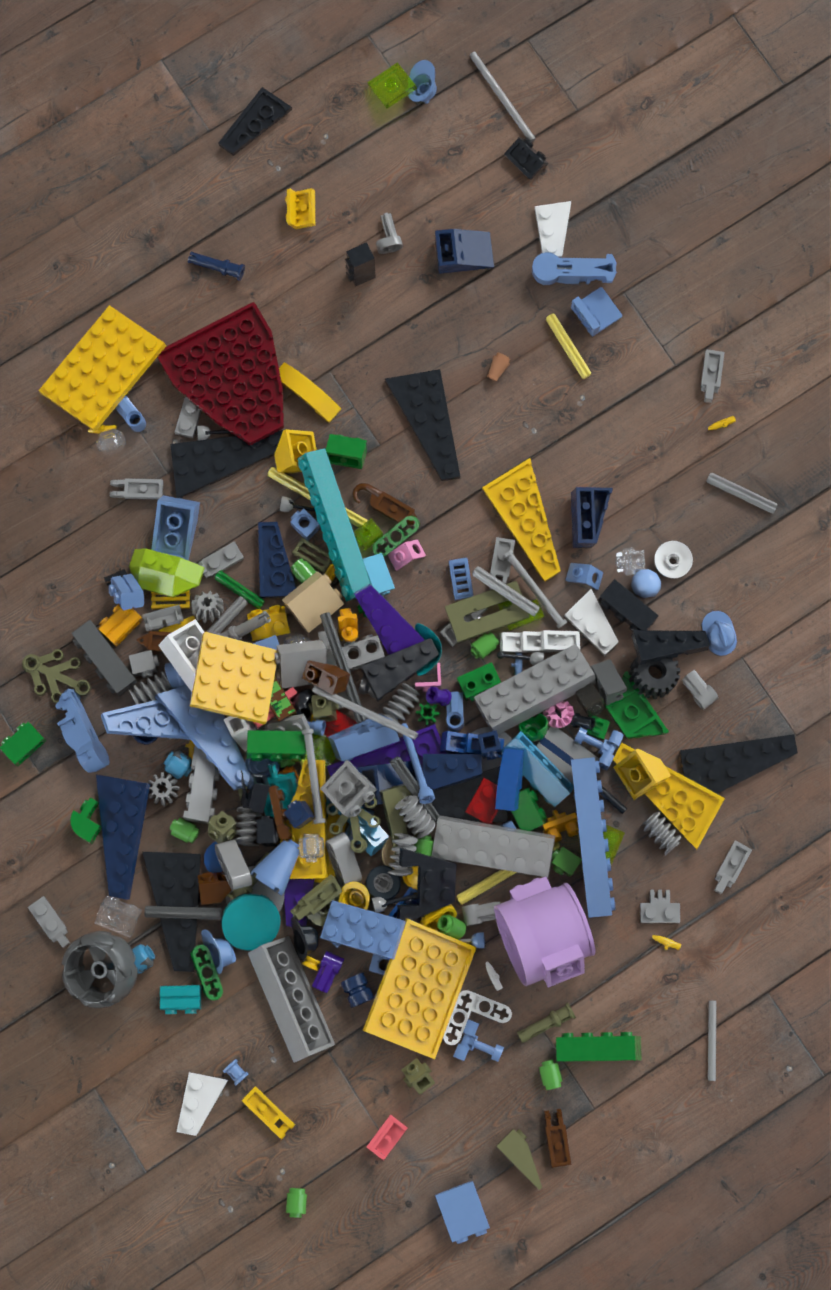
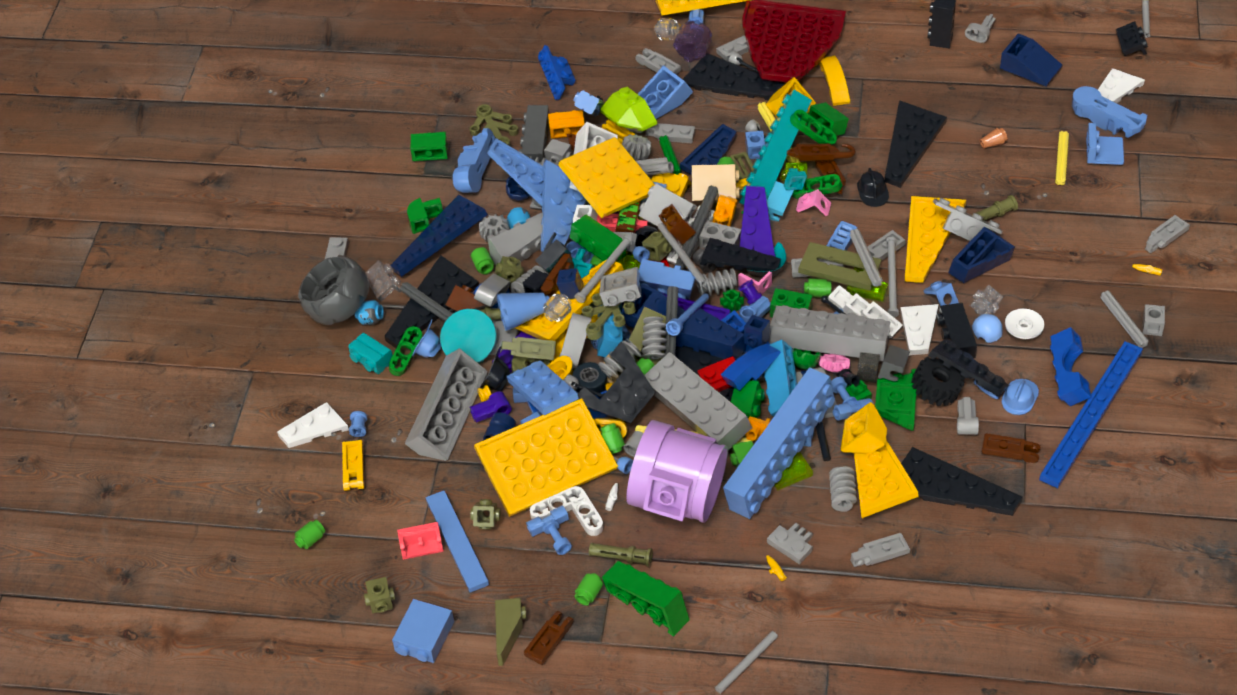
camera: 45 degrees right, 30 degrees down
(55, 567) = (556, 71): none -> blue bracket
(152, 445) = (693, 41): none -> clear purple brick
(344, 483) = (806, 118): none -> green beam
(374, 497) = (820, 152): none -> reddish brown plate
(378, 547) = (795, 179): none -> teal tile
(400, 1204) = (379, 595): none -> olive brick
(411, 1112) = (457, 541): none -> medium blue tile
(440, 499) = (873, 189): none -> black piece
(551, 487) = (963, 223): none -> light grey bracket
(561, 446) = (999, 208): none -> olive pin
(724, 563) = (1072, 385): none -> blue arch
(749, 694) = (1010, 448): none -> reddish brown hinge
(766, 487) = (1153, 320): none -> light grey brick
(786, 612) = (1090, 415): none -> blue plate

